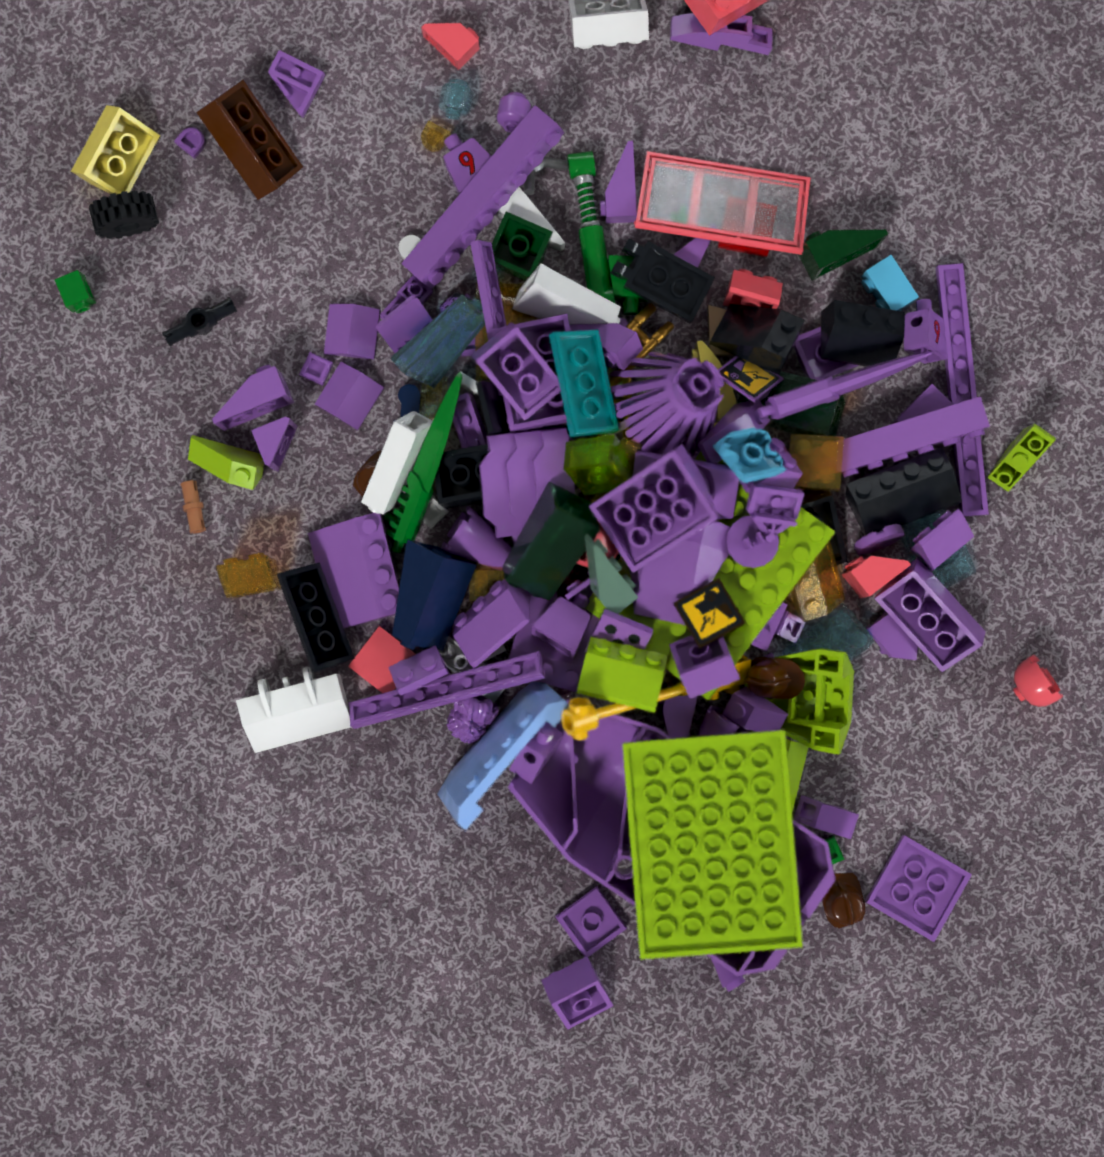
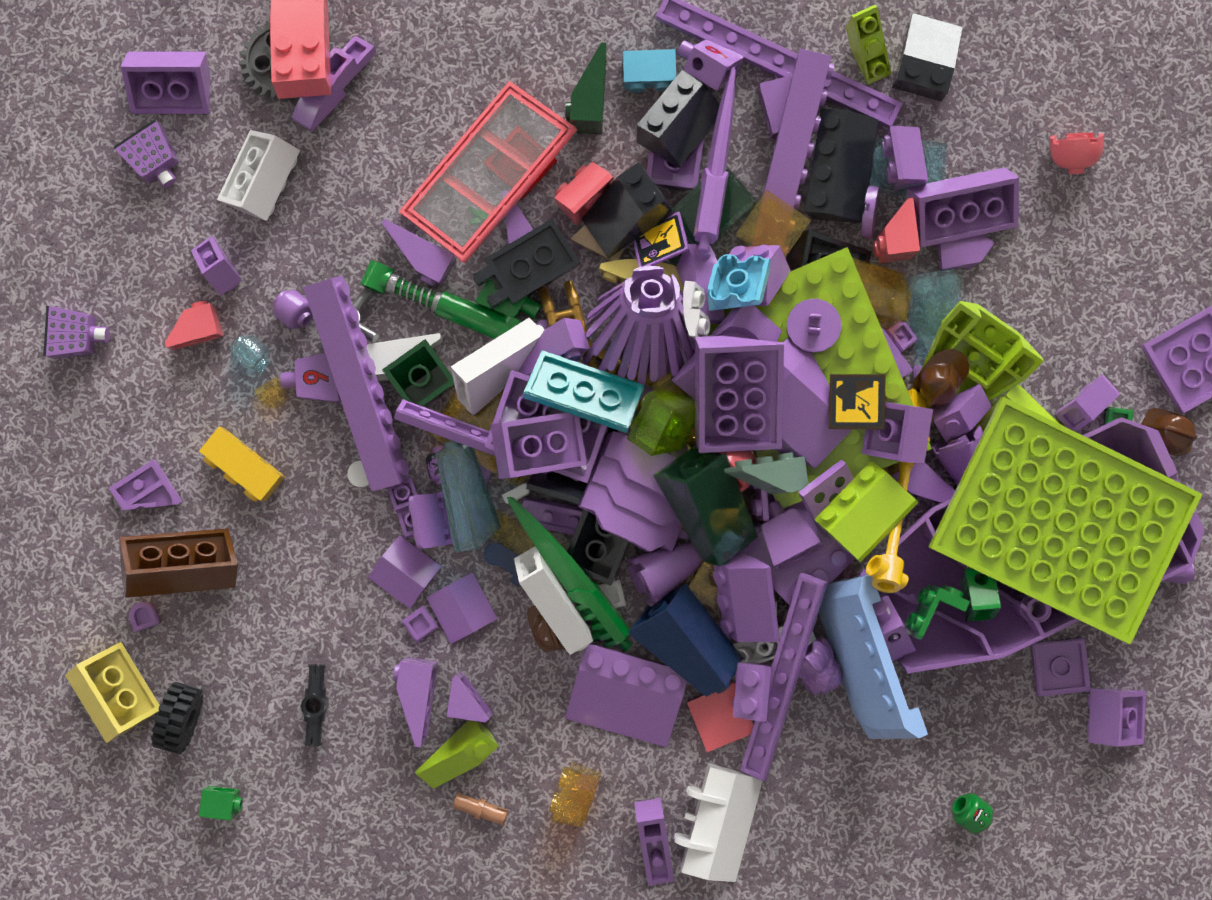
camera: 55 degrees left, 0 degrees up
(248, 664) = (654, 841): none -> medium lavender slope
(315, 617) = (649, 756): black slope -> none
(361, 146) = (241, 465): none -> yellow brick
(425, 916) = (972, 813): none -> green head
(512, 29) = (216, 266): none -> medium lavender slope
(578, 769) = (928, 601): none -> green bracket
(606, 813) = (983, 598): none -> green torso
(713, 427) = (695, 320): none -> white slope
(773, 508) = (796, 289): medium lavender slope -> none
(1040, 513) = (928, 57): none -> slope

